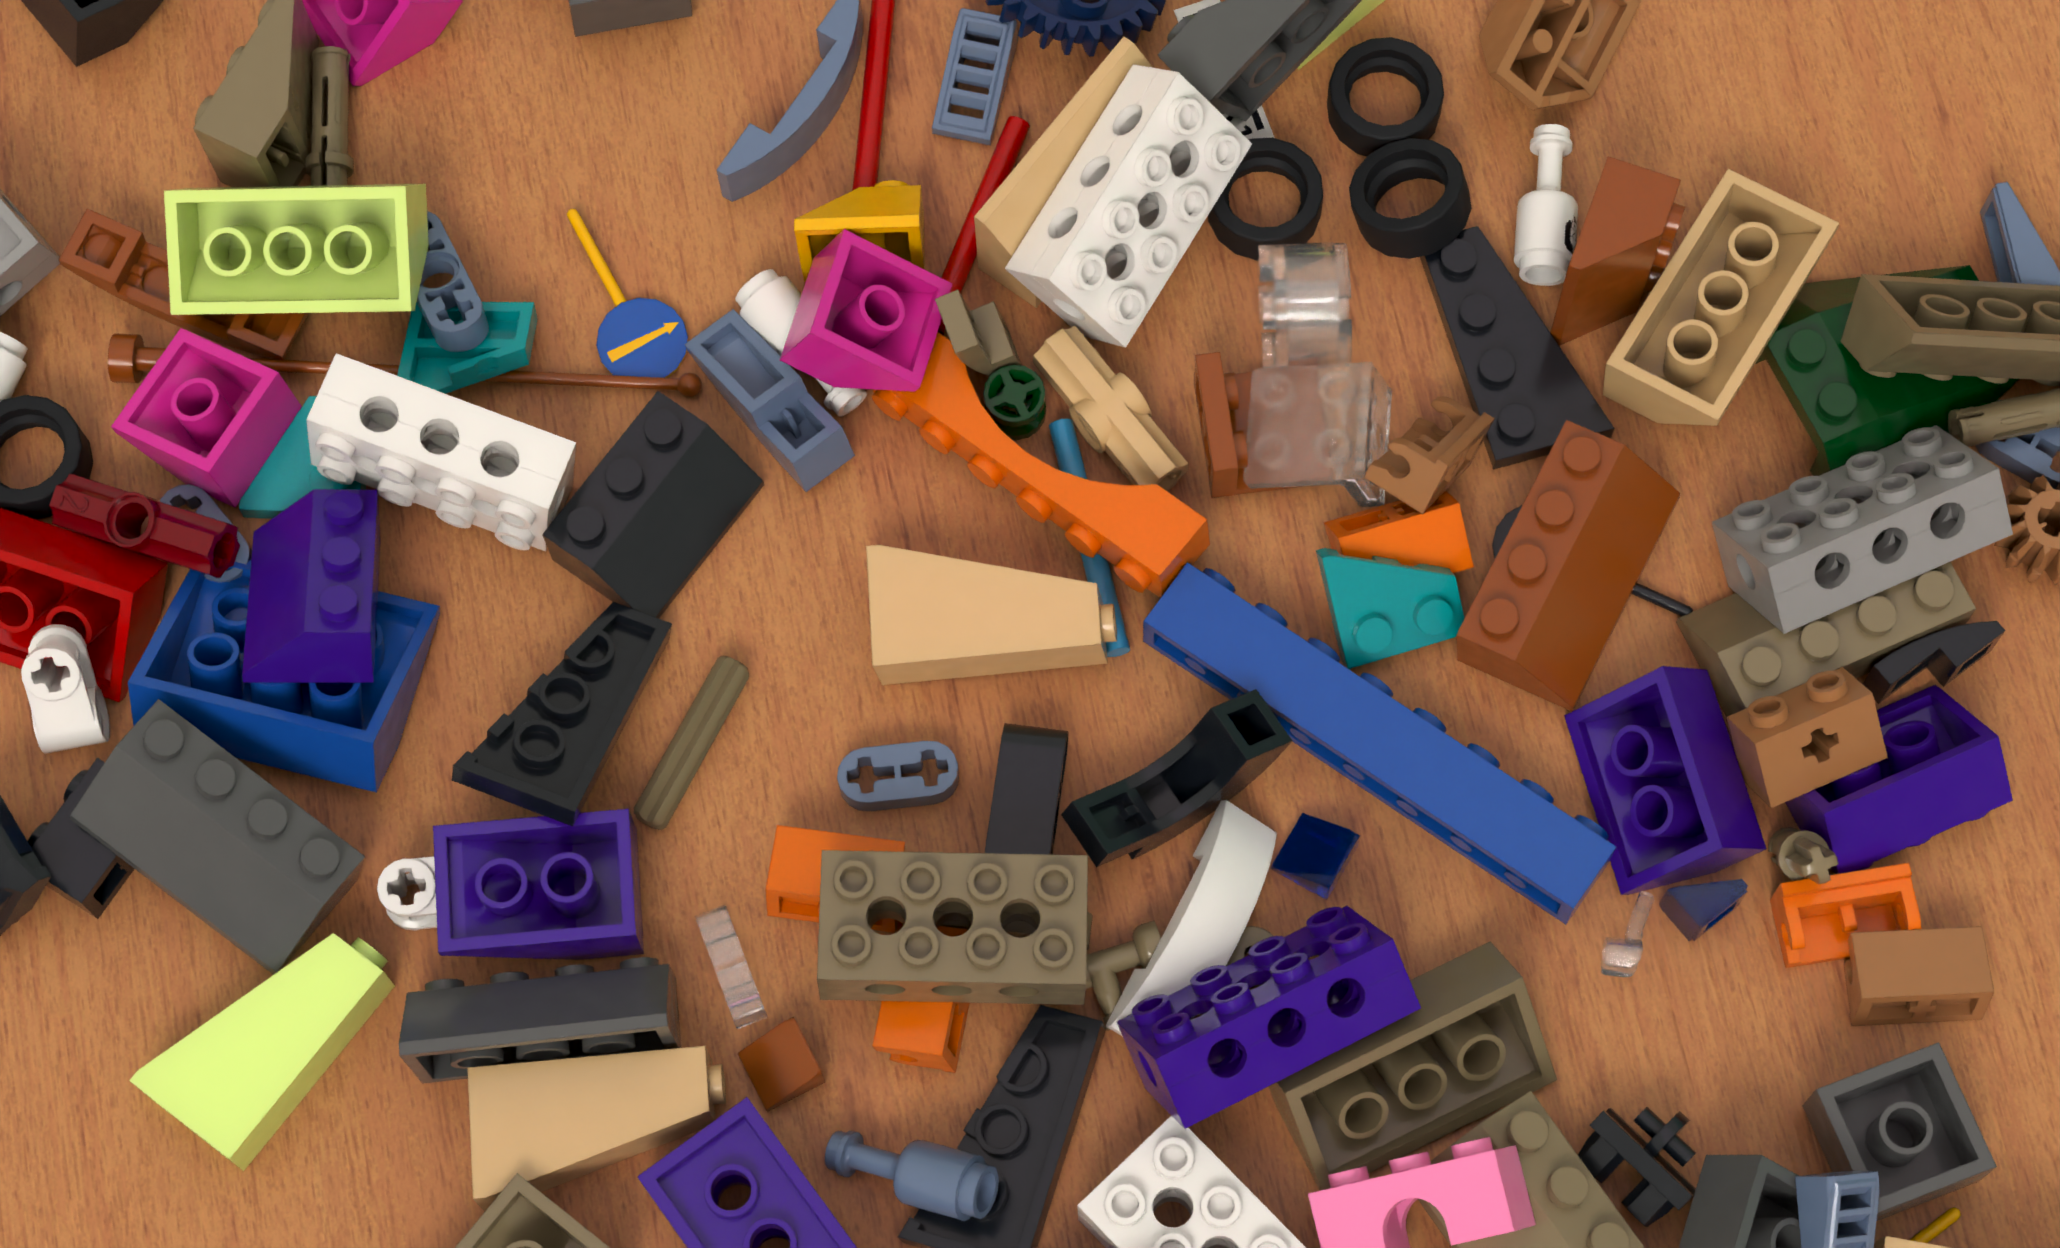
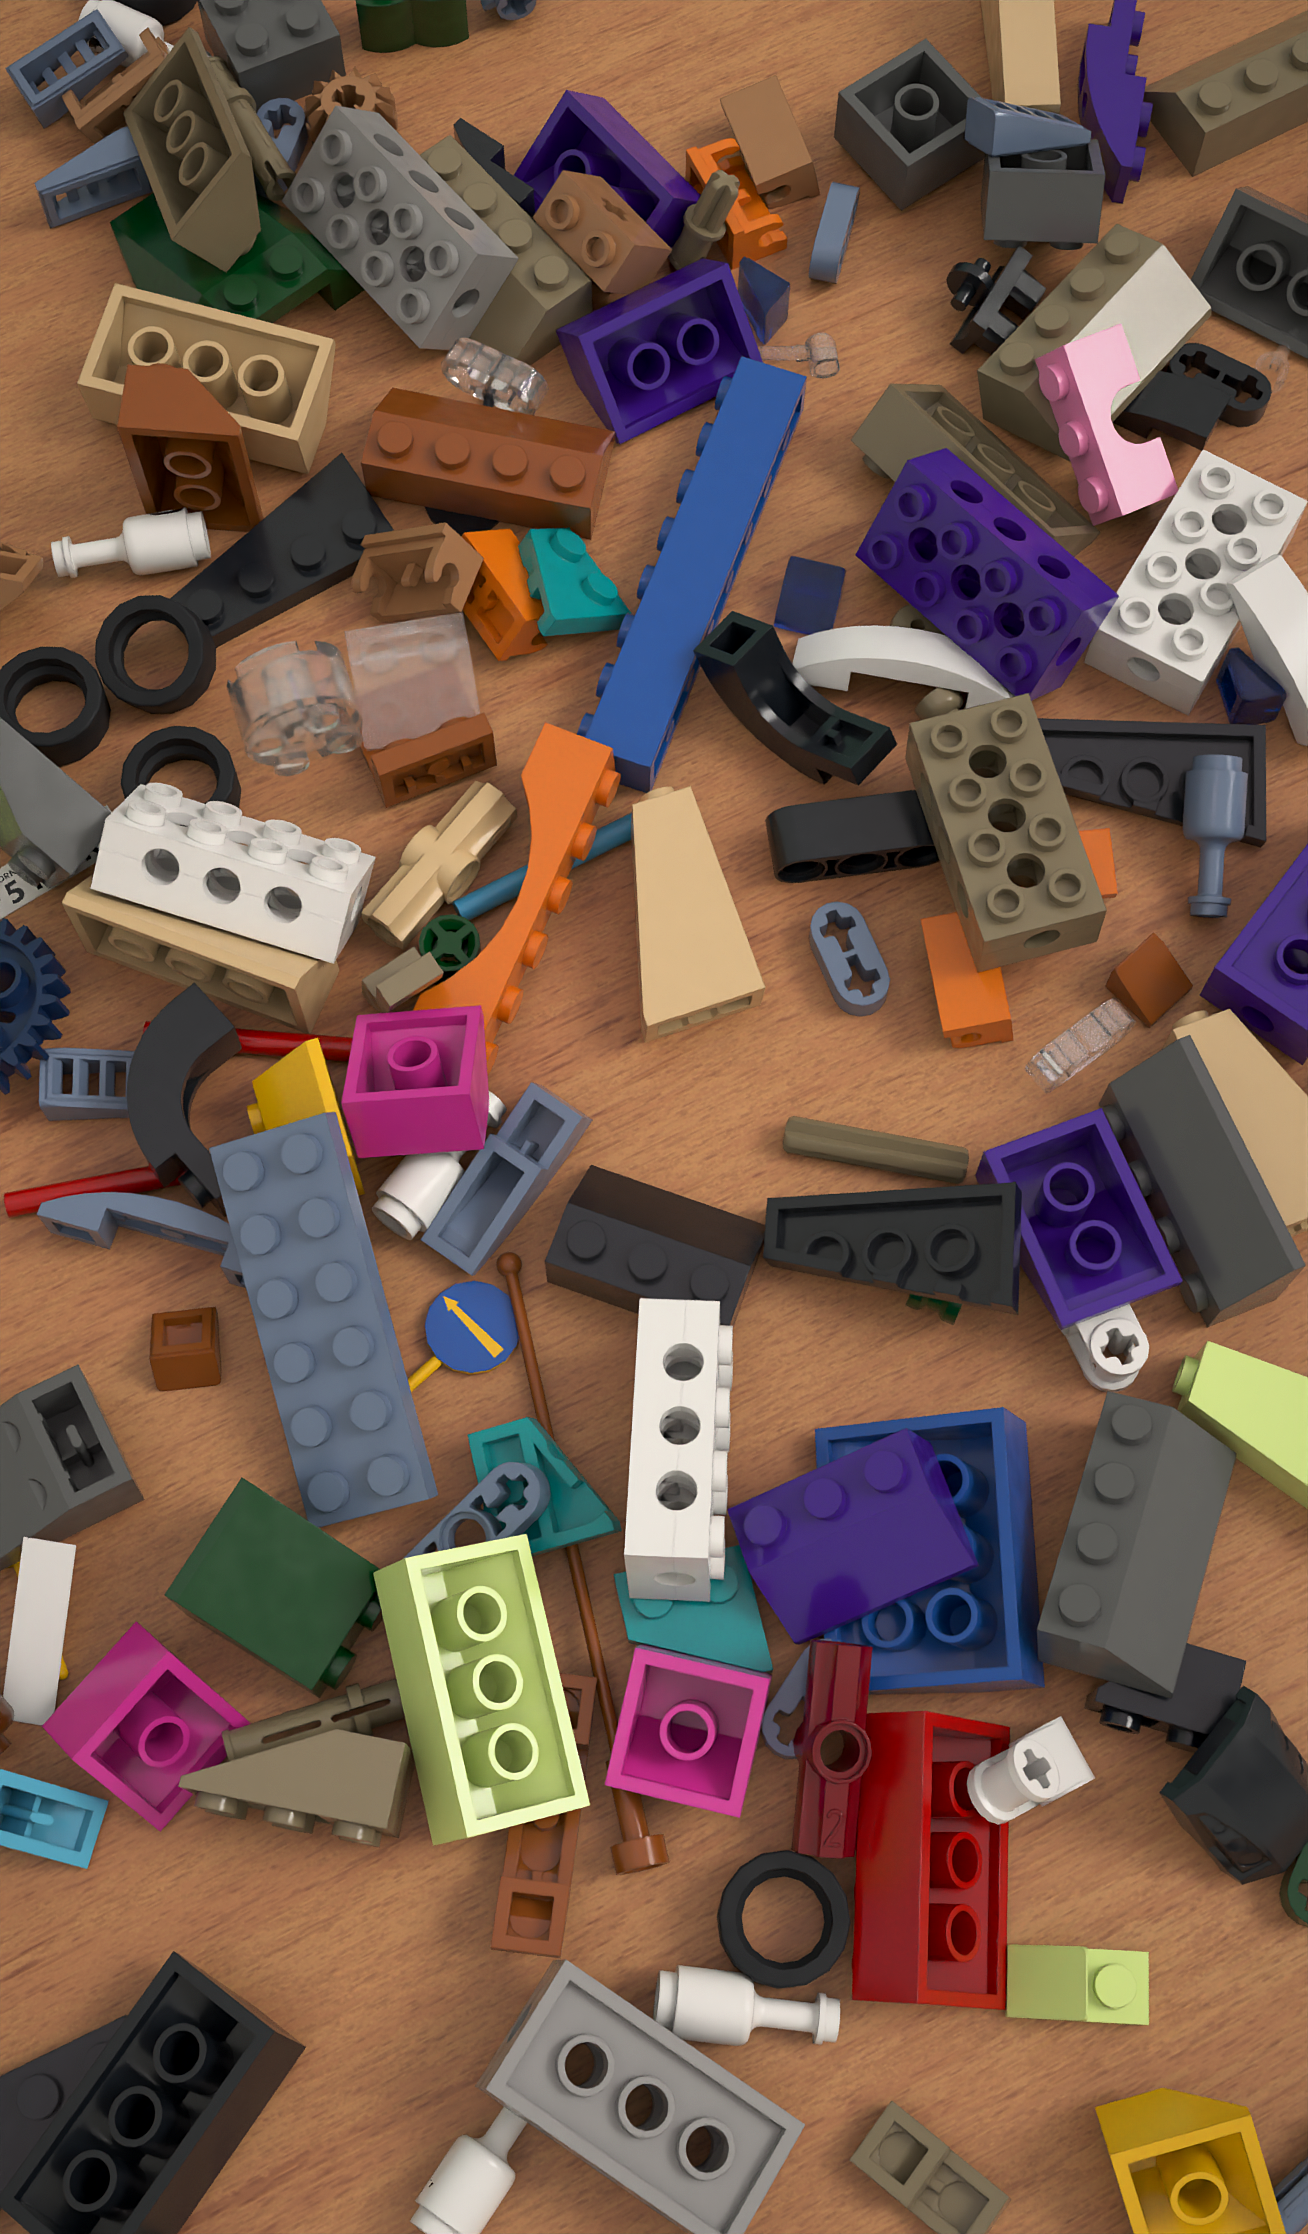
camera: 110 degrees left, 0 degrees up
(447, 113) = (279, 1589): none -> dark green slope
(665, 189) = (323, 1321): none -> sand blue plate
(704, 97) = (185, 1349): none -> dark orange slope
(922, 107) = (167, 1069): none -> black arch
(1669, 599) = (493, 374): none -> clear beam
(1779, 1012) = (834, 232): none -> sand blue beam

